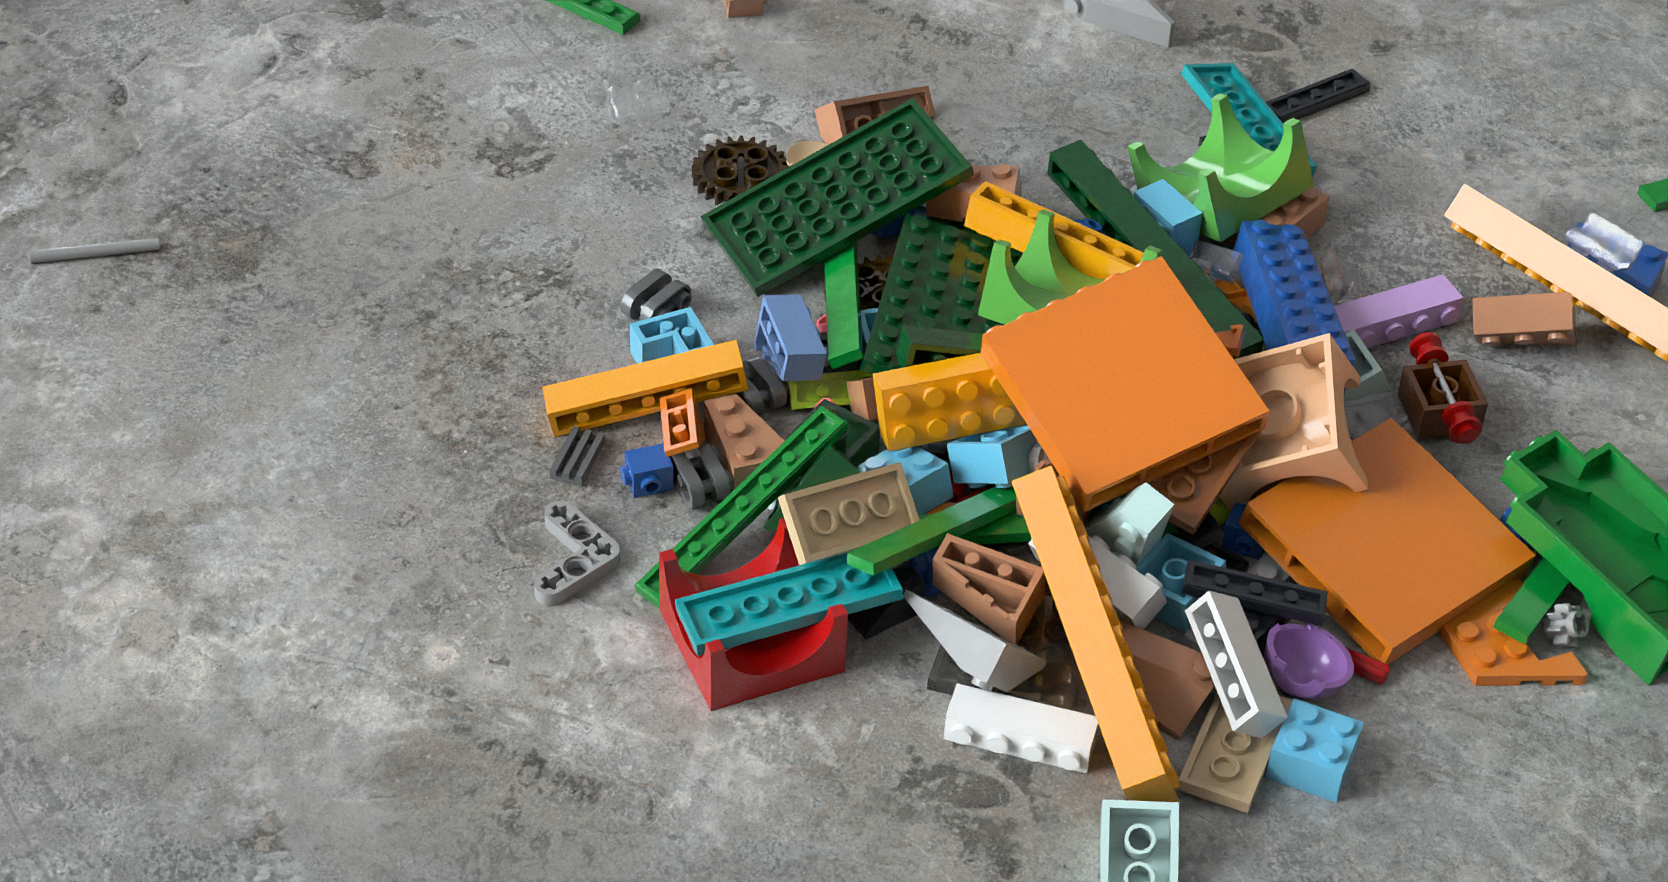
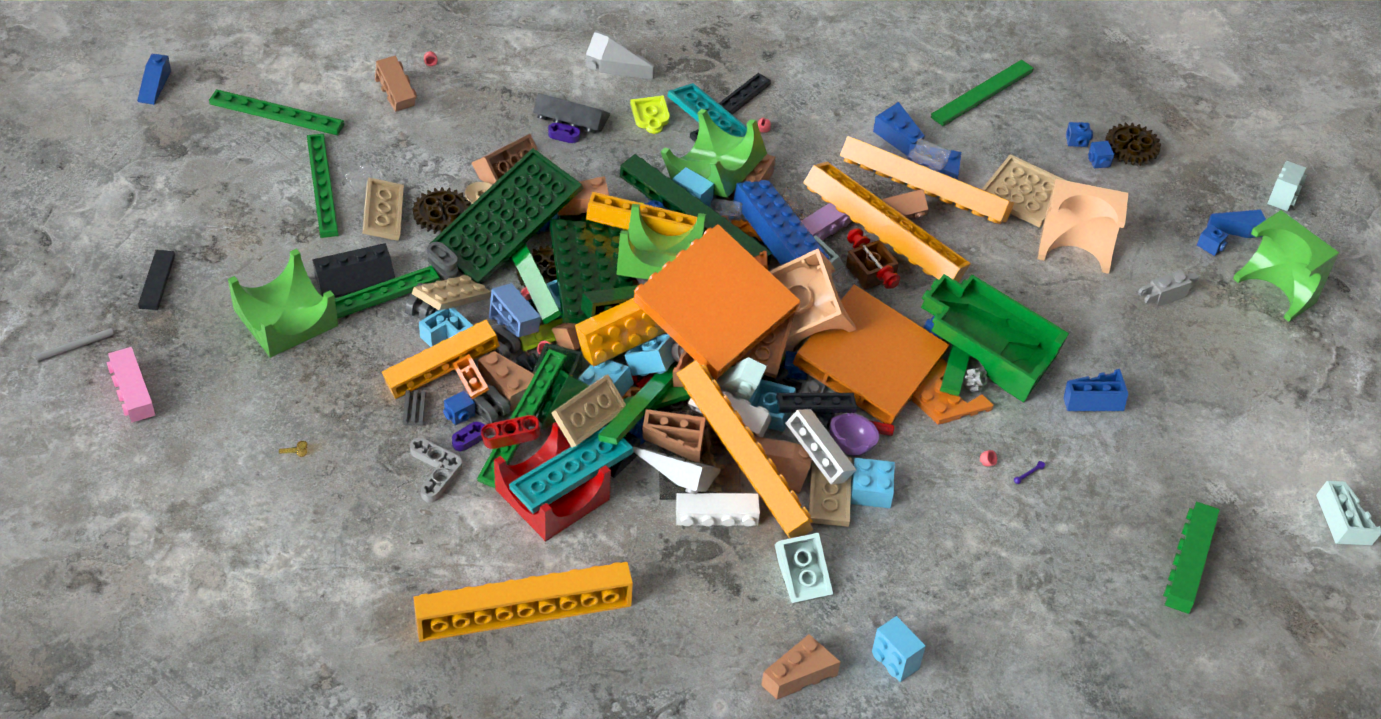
camera: 20 degrees left, 5 degrees up
(149, 323) = (131, 385): none -> bright pink brick
(256, 184) = (156, 280): none -> black tile
(370, 477) = (300, 449): none -> clear yellow hand
(431, 266) = (285, 309): none -> bright green piece
(563, 232) = (353, 270): none -> black slope
(567, 101) = (322, 186): none -> green tile
(595, 272) = (384, 291): none -> green plate
(628, 791) = (523, 601): none -> light orange brick
(646, 151) = (383, 209): none -> tan plate
(648, 518) = (468, 436): none -> dark purple beam
(689, 521) = (501, 430): none -> red beam
(700, 291) = (451, 292): none -> tan plate
(709, 245) = (442, 260): none -> dark grey brick
(785, 421) = (527, 360): none -> black gear
(987, 97) = (564, 132): none -> dark purple beam
(1009, 68) = (570, 112): none -> black slope
(1144, 95) = (650, 113): none -> neon yellow plate
(1333, 149) = (767, 125): none -> coral hinge
(1485, 332) = (885, 222): none -> light orange brick
(1552, 765) = (988, 458): none -> coral hinge
(1565, 192) = (897, 128): none -> blue wedge
(1643, 796) = (1040, 465): none -> dark purple hinge

